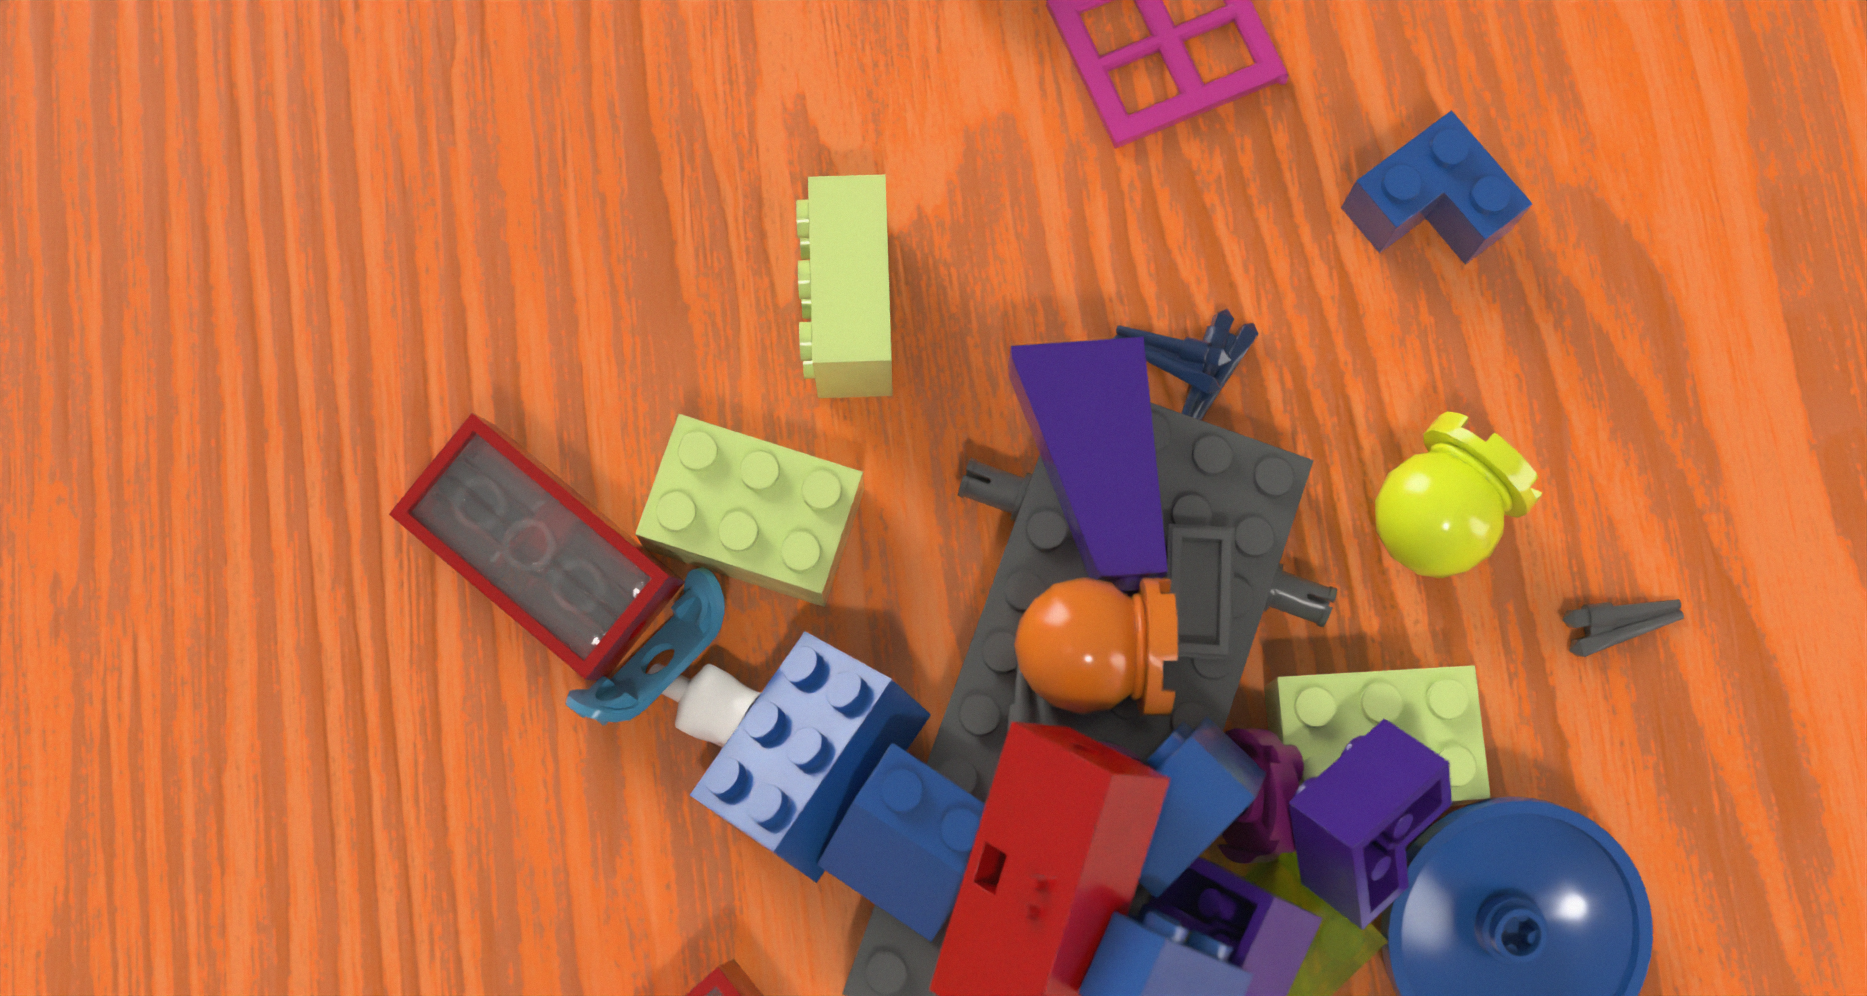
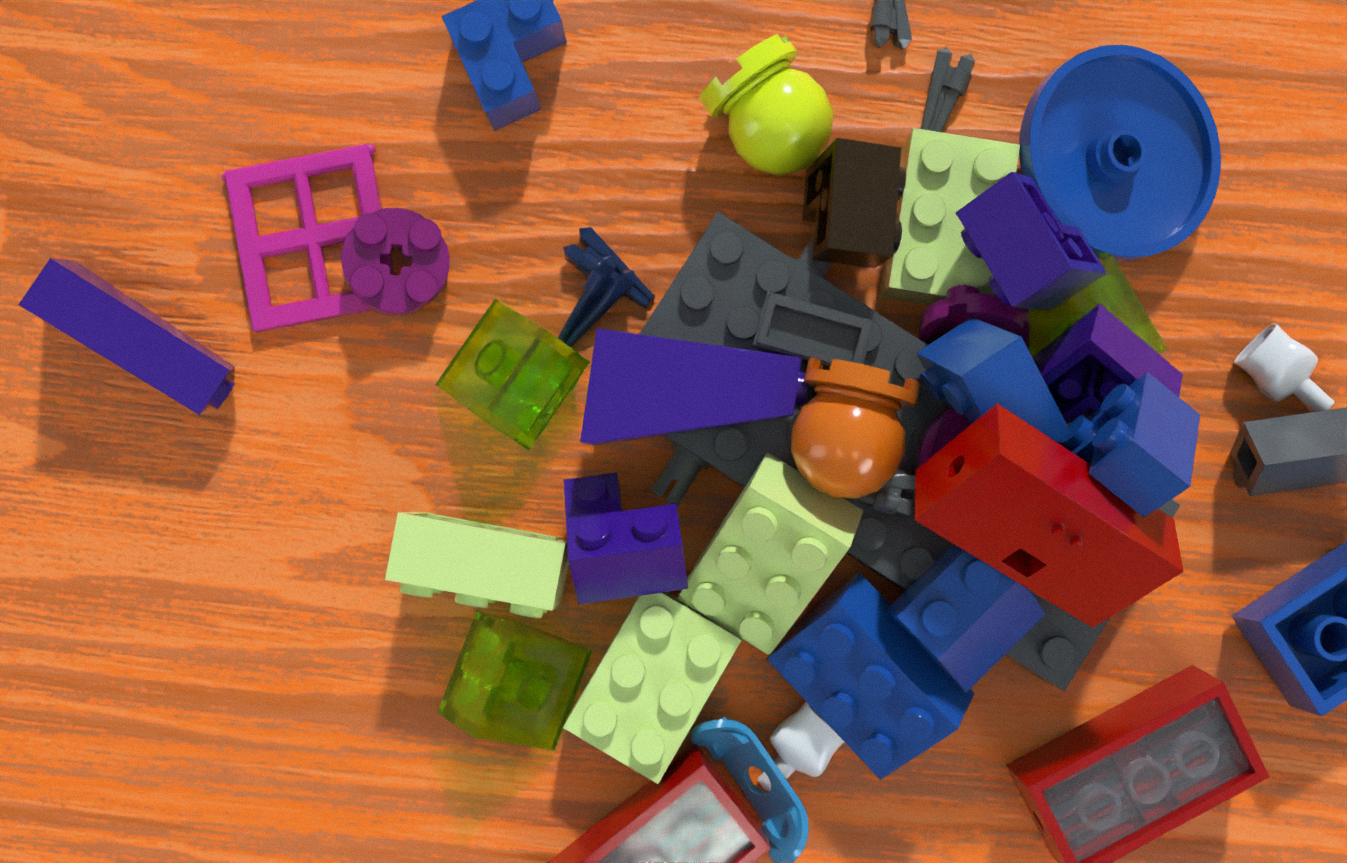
camera: 75 degrees left, 10 degrees up
(716, 357) = (513, 683): none -> clear neon green slope
(898, 430) = (620, 550): none -> dark purple brick
(928, 599) = (770, 555): none -> yellowish green brick
(1065, 279) = (512, 373): none -> clear neon green slope
(1187, 102) = (375, 237): none -> magenta plate
(1365, 611) = (854, 203): none -> dark brown brick
(1536, 712) = (945, 88): none -> dark grey piece

